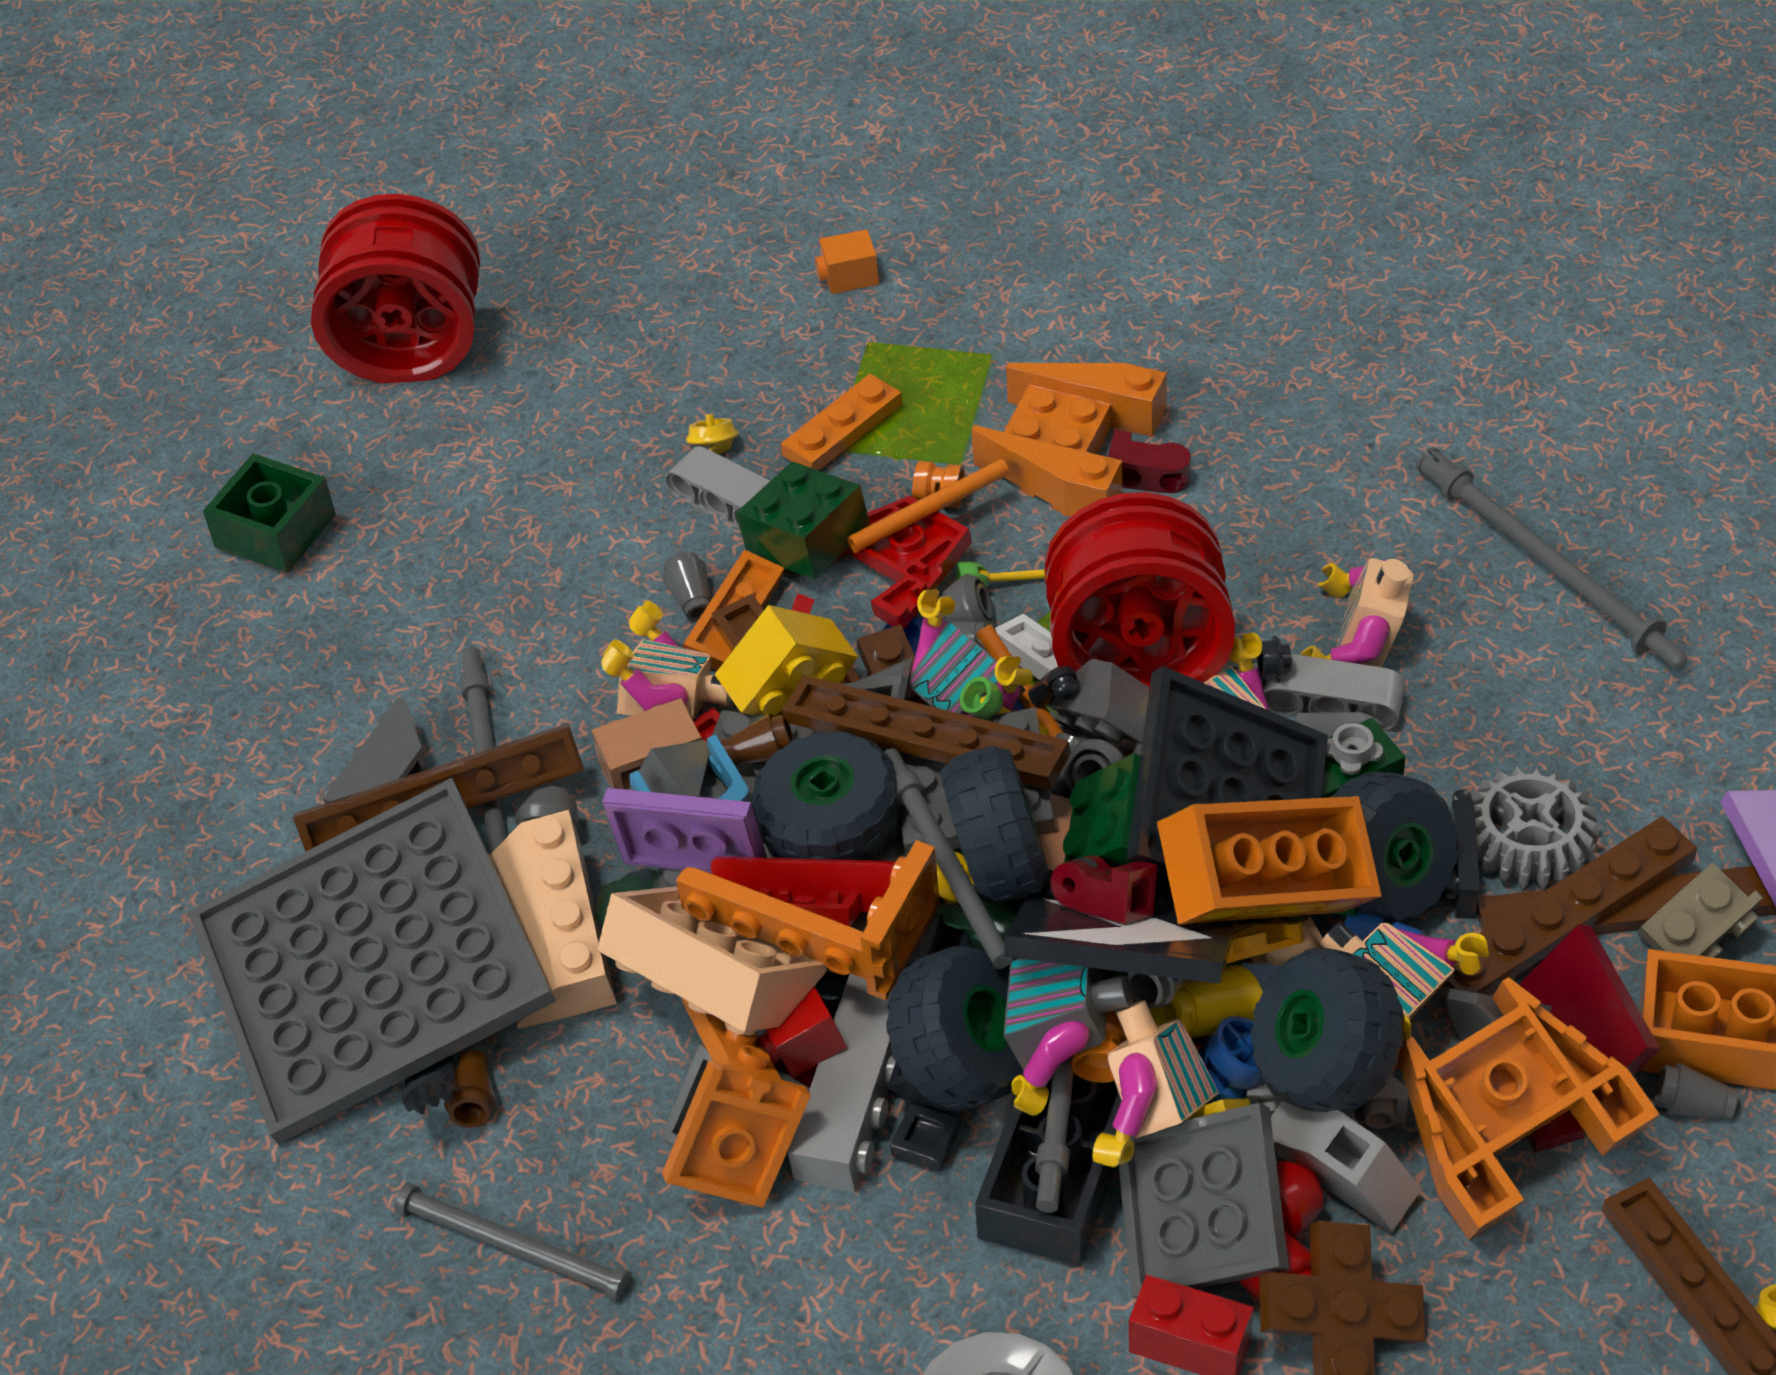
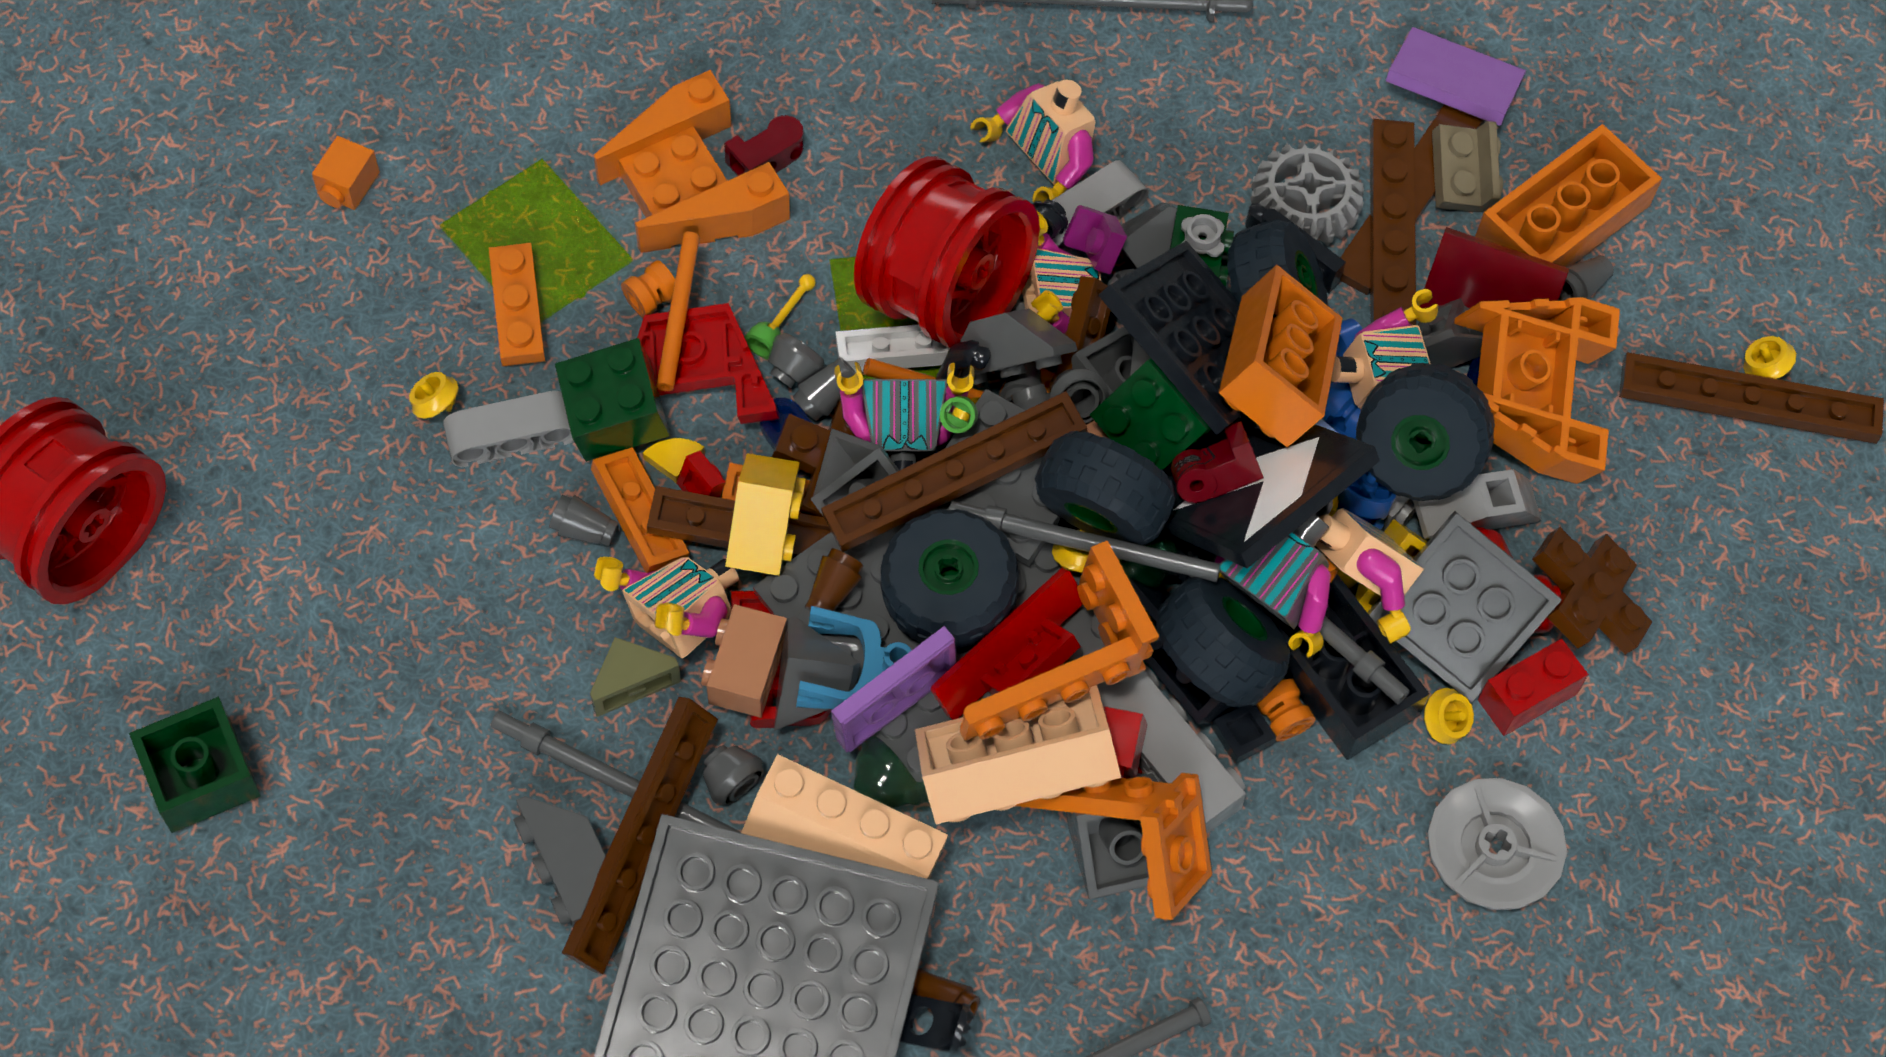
camera: 60 degrees left, 15 degrees up
(572, 697) = (630, 675): none -> olive slope
(822, 605) = (670, 455): none -> yellow tile
(972, 1153) = (1286, 711): none -> orange wheel
(1097, 1284) = (1448, 716): none -> yellow hat
(1294, 692) = (1097, 235): none -> magenta bracket

